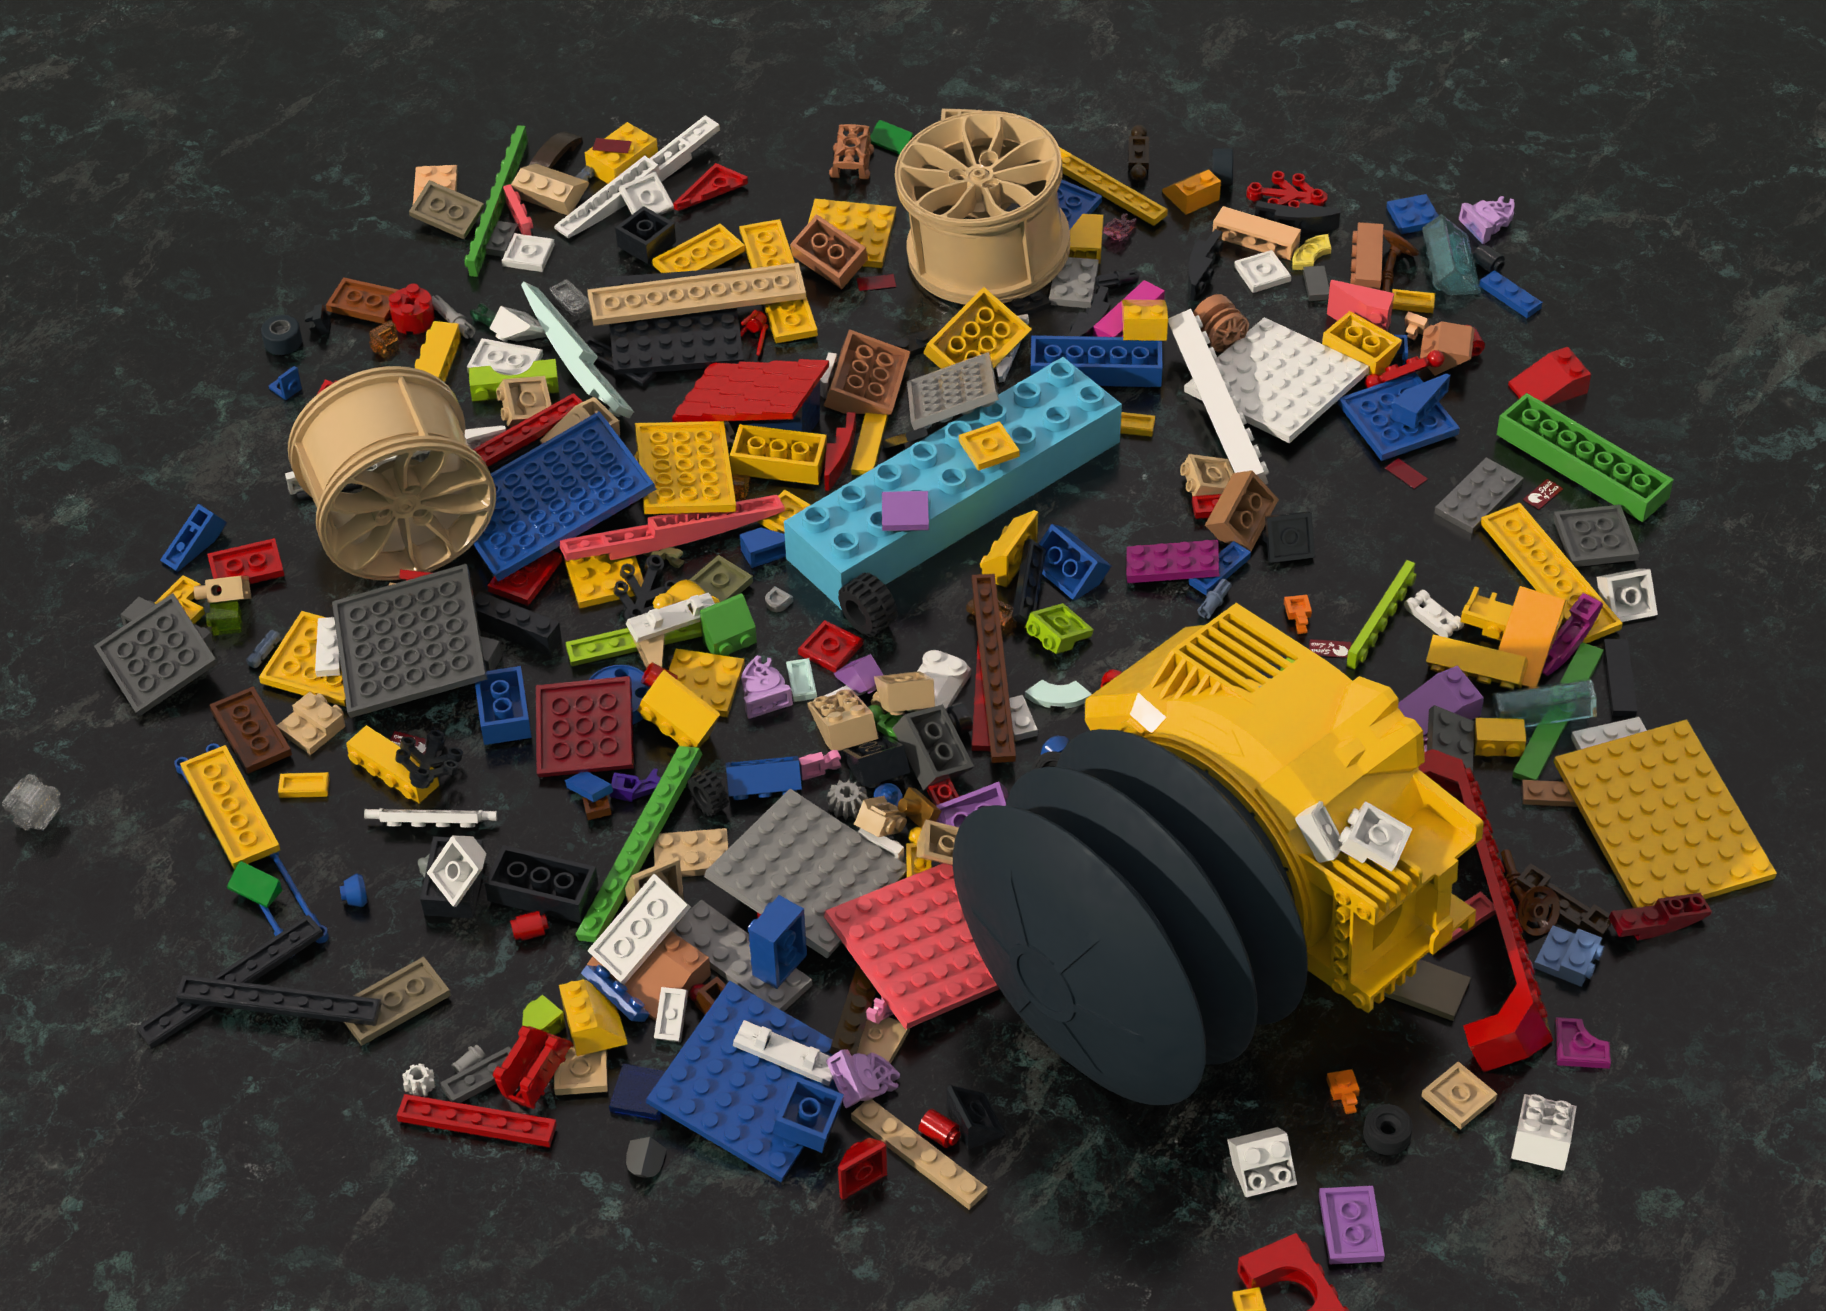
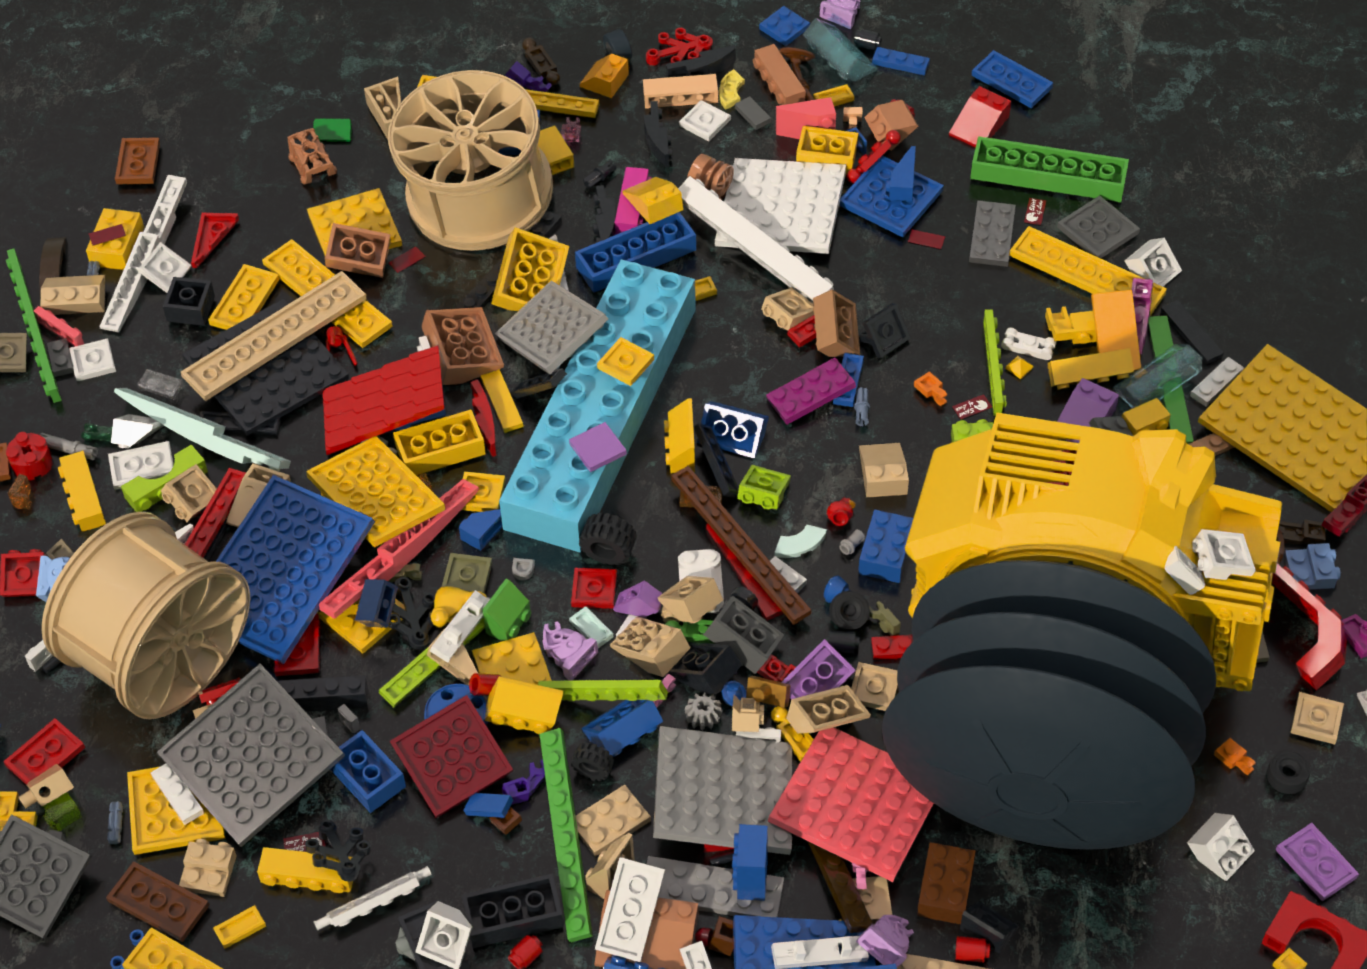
camera: 30 degrees left, 5 degrees up
(522, 655) = (348, 718): none -> light grey tile
(612, 563) = (376, 603): none -> dark blue brick
(692, 95) = (137, 161): none -> dark orange plate
(764, 734) = (609, 689): none -> lime plate
(960, 1056) = (946, 883): none -> reddish brown brick
(1075, 283) = (569, 192): light grey plate -> none
(1108, 160) = (523, 77): none -> dark purple piece
(1408, 632) = (1019, 367): none -> yellow slope
(1616, 356) = (1012, 79): none -> blue plate

